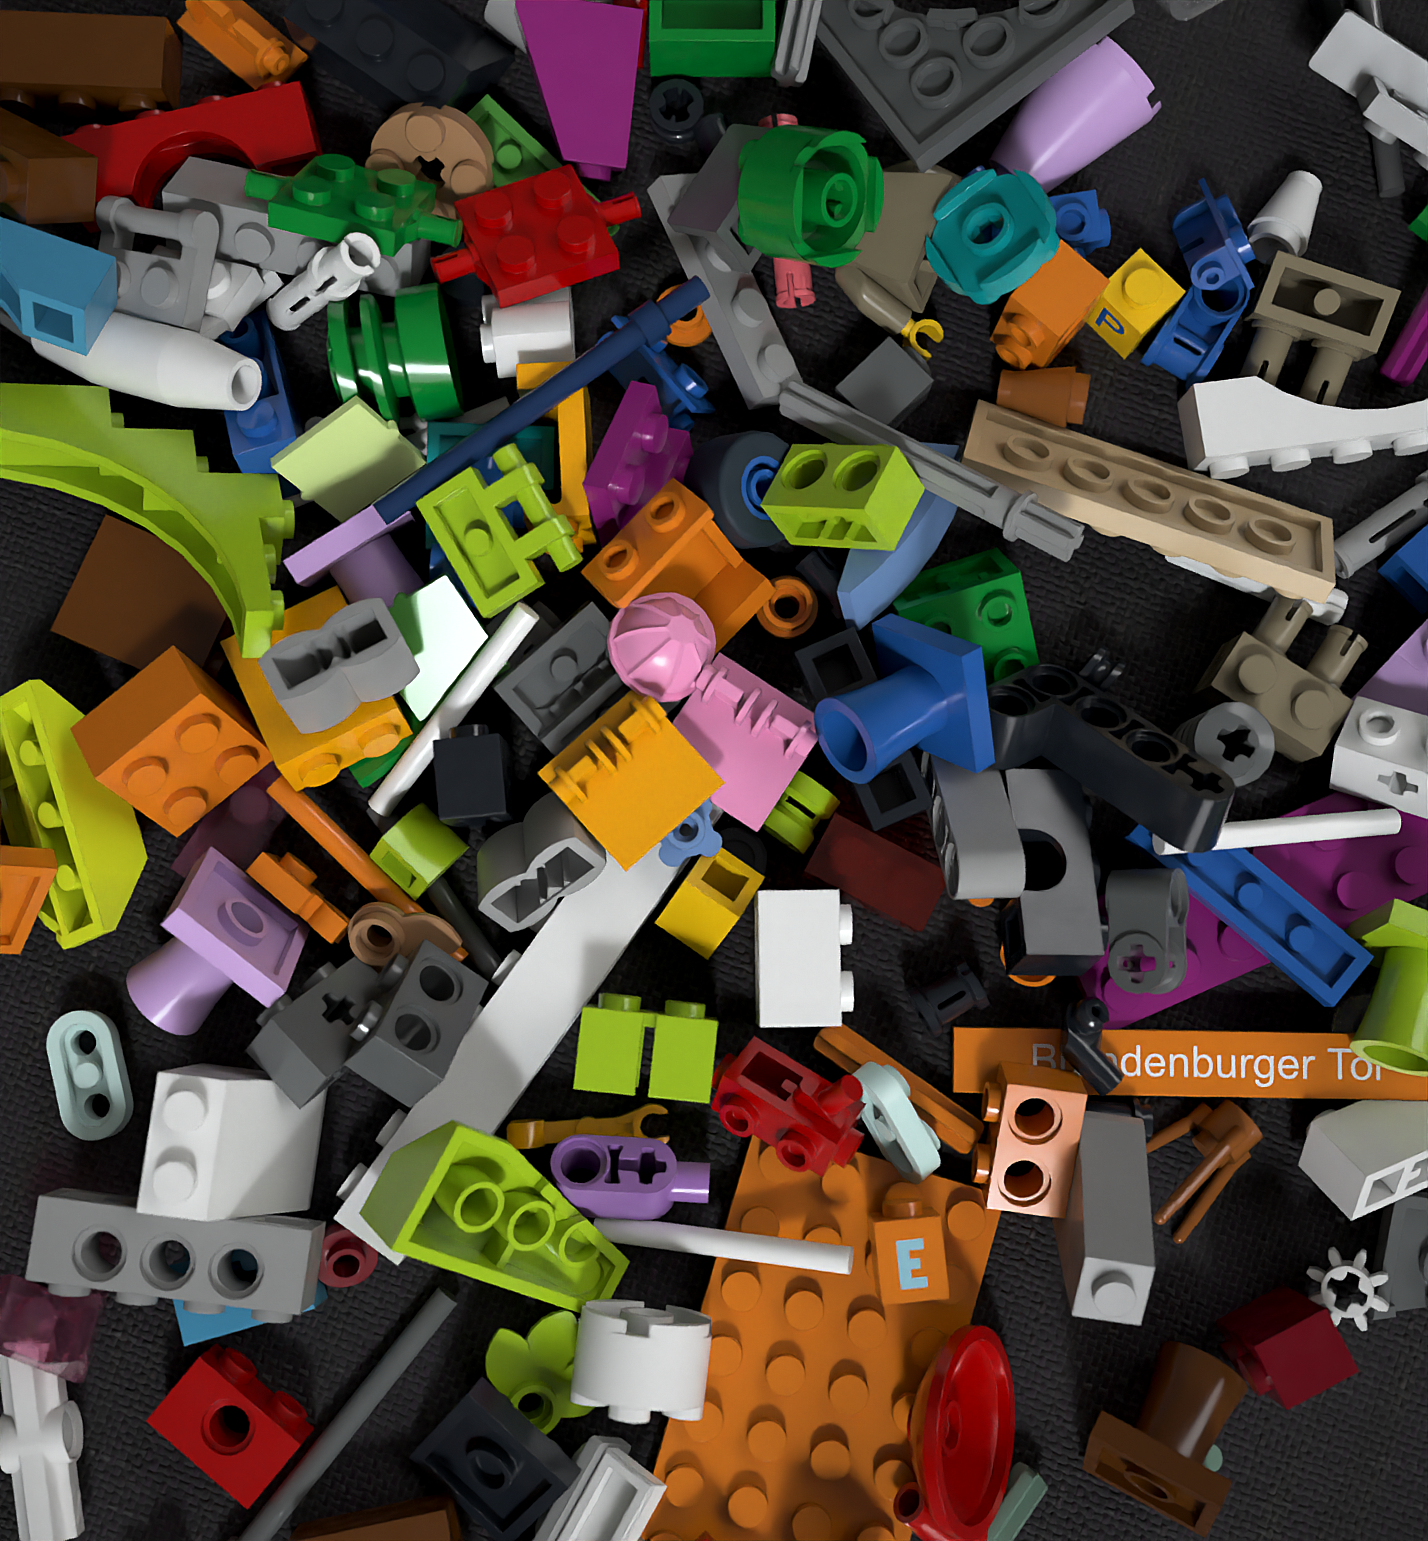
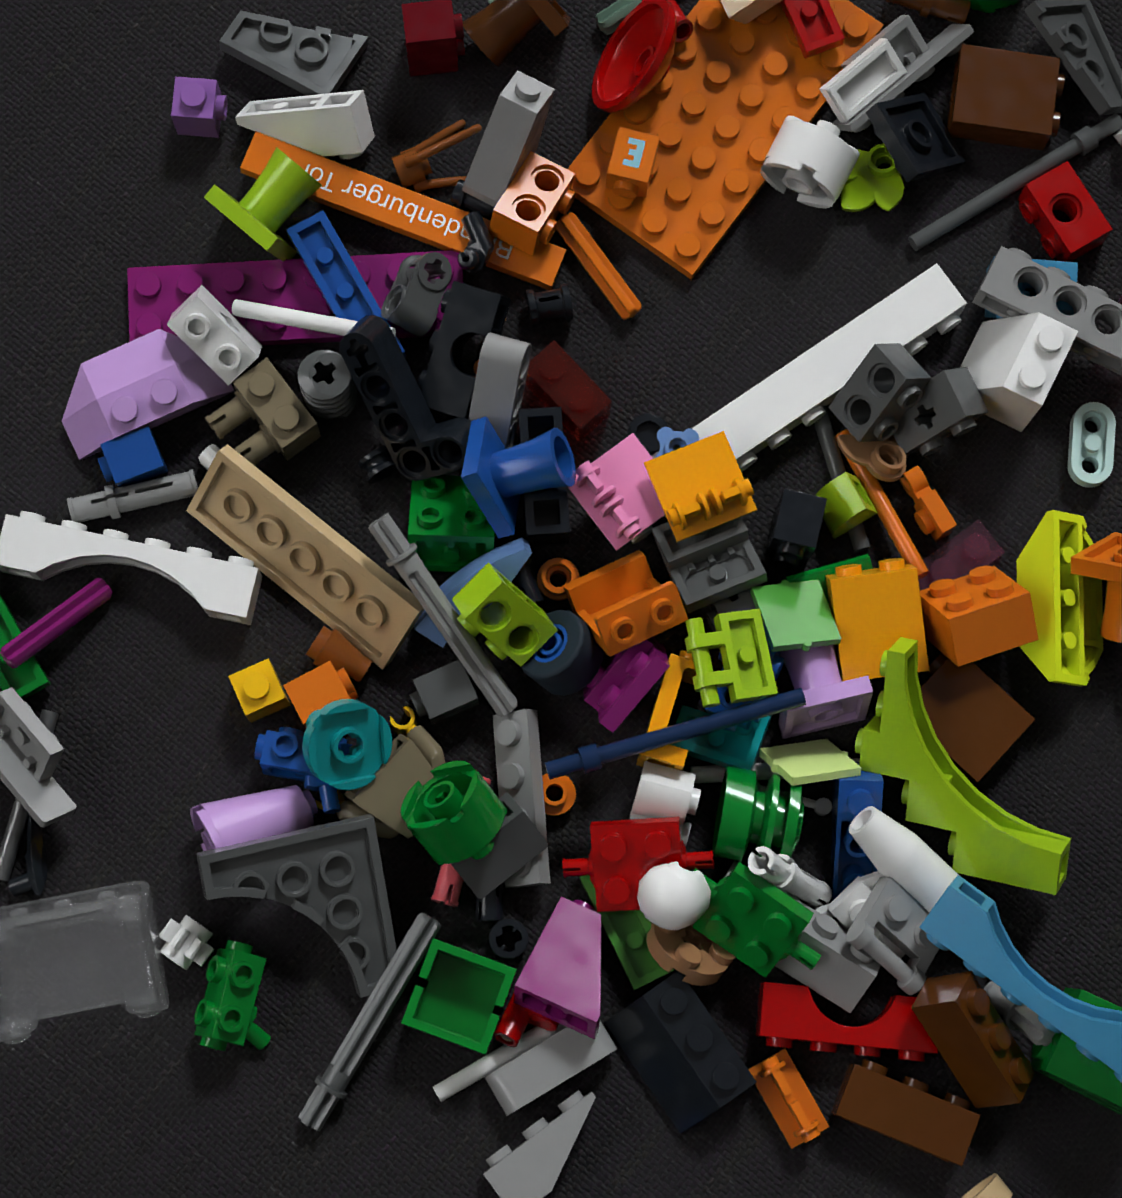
camera: 160 degrees left, 5 degrees down
(222, 935) = (981, 487): lavender plant -> none
(332, 670) = (871, 603): light grey brick -> none
(340, 1242) = (967, 282): dark red plate -> none
(454, 708) = (796, 574): white bar -> none
(470, 185) = (673, 896): none -> white hair
(490, 1215) = (874, 265): lime wedge -> none
(535, 863) = (777, 463): light grey brick -> none
(538, 1133) = (830, 316): light orange piece -> none
(613, 1048) = (724, 322): lime piece -> none
(631, 1159) = (750, 254): medium lavender piece -> none
(661, 645) = (650, 560): bright pink piece -> none
(677, 387) = (595, 785): blue hinge -> none
(710, 901) = (675, 405): yellow brick -> none
(728, 1244) = (739, 210): white bar -> none
(789, 1108) = (672, 271): red brick -> none
(791, 824) = (598, 442): lime wheel -> none
(800, 958) = (635, 351): white brick -> none
(895, 1124) = (606, 230): light aqua plate -> none
(1195, 333) = (224, 657): blue piece -> none
(1212, 241) = (190, 693): blue hinge -> none
(1286, 218) = (132, 713): white cone -> none
(1321, 306) = (143, 642): dark tan brick -> none
(1338, 1270) = (369, 48): white gear -> none

